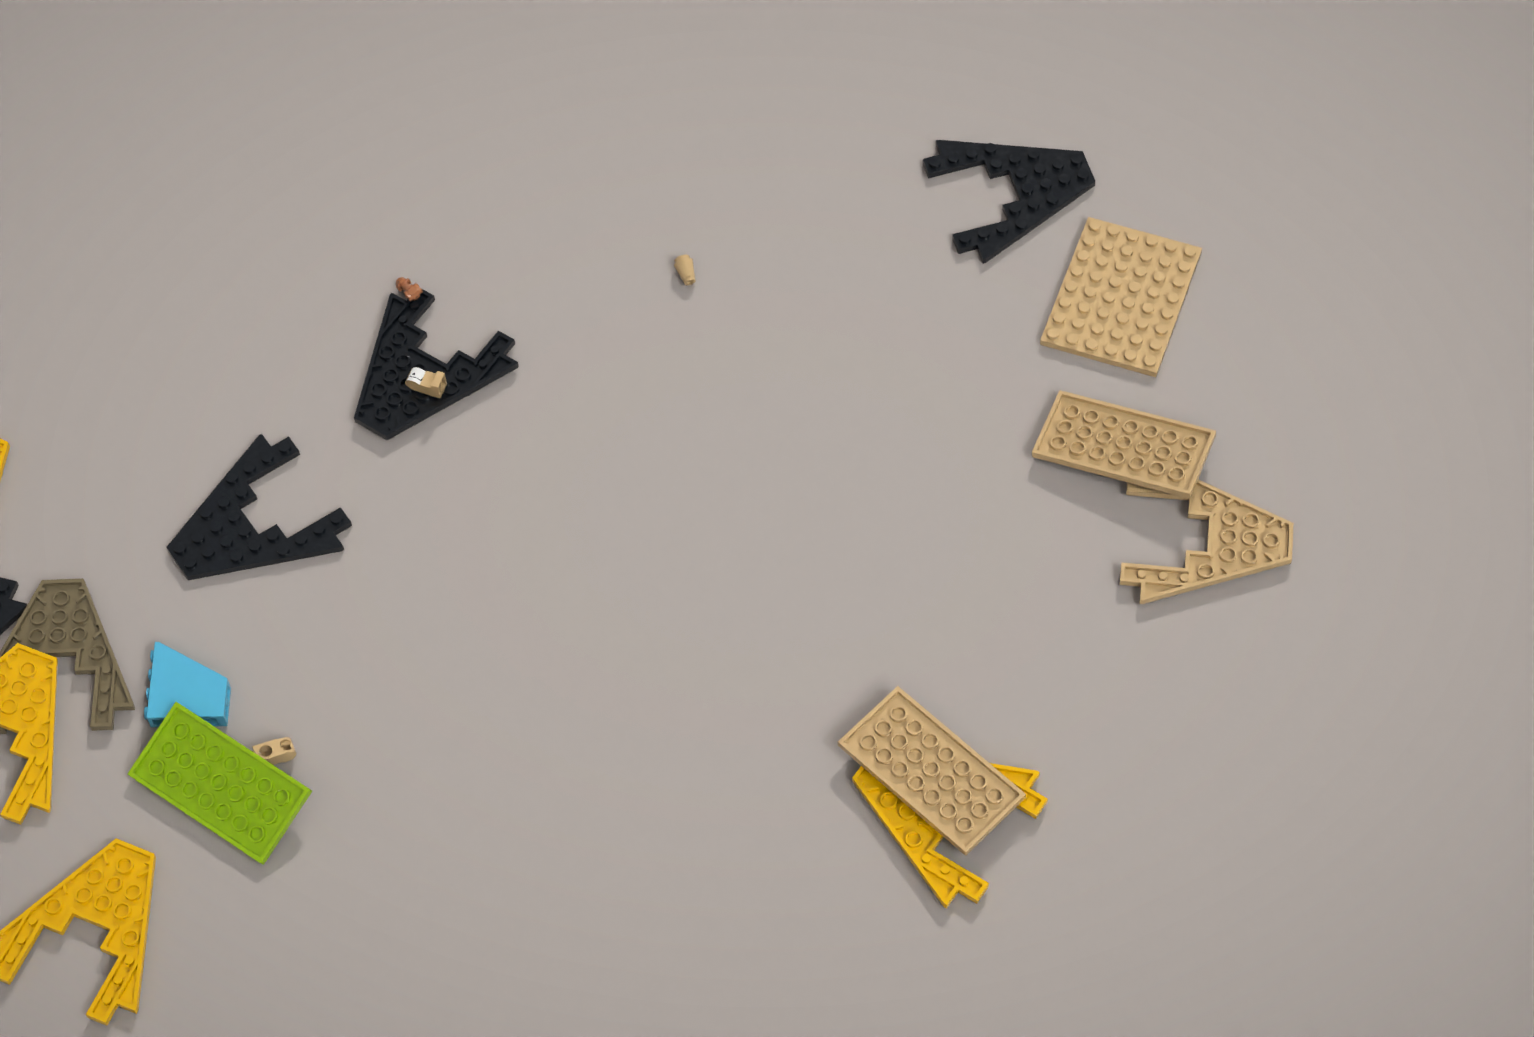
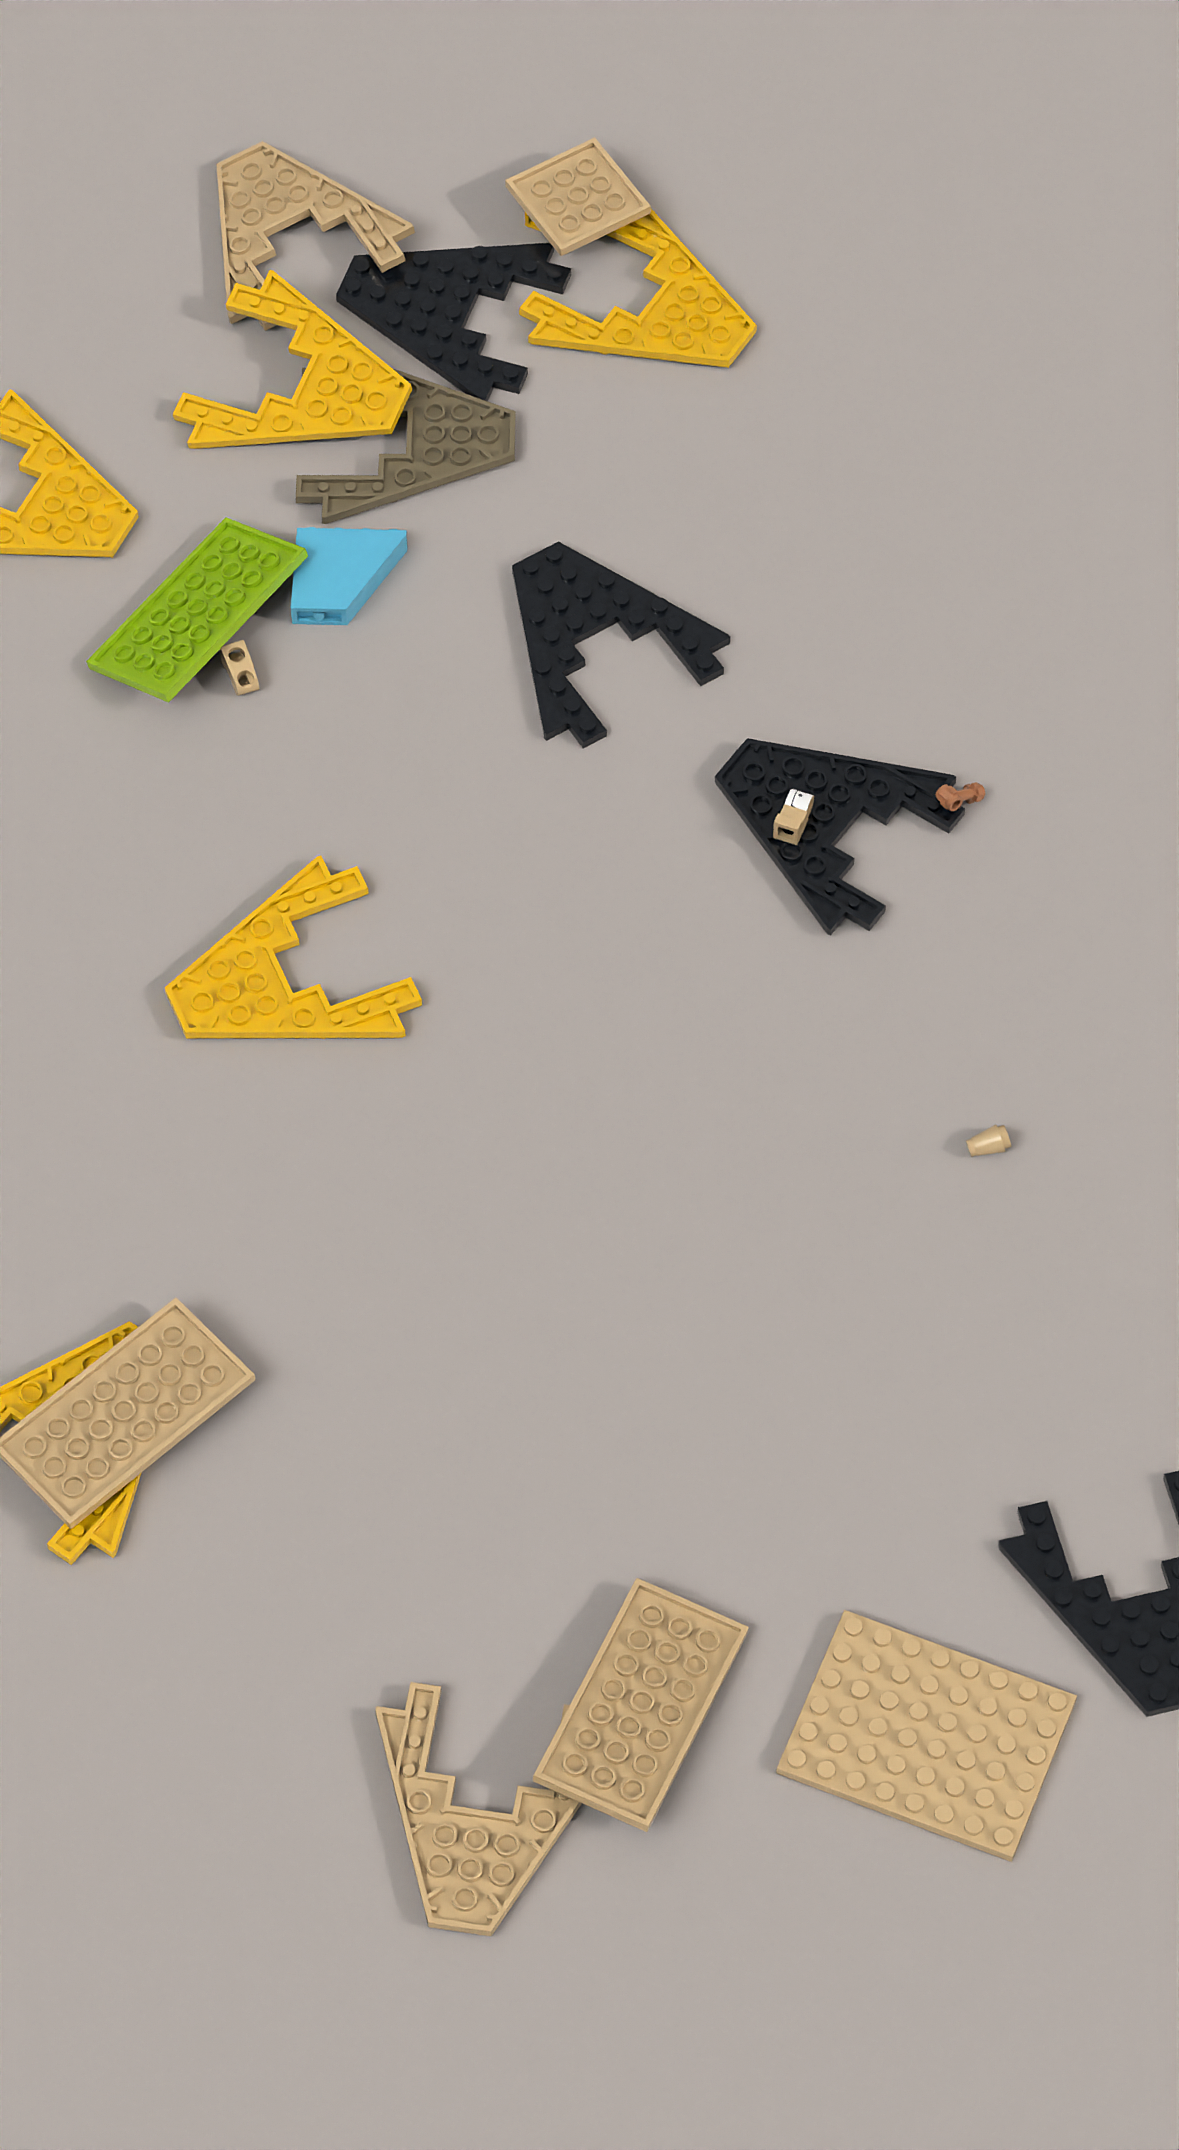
camera: 90 degrees right, 0 degrees up
(561, 734) = (244, 993): none -> yellow wing

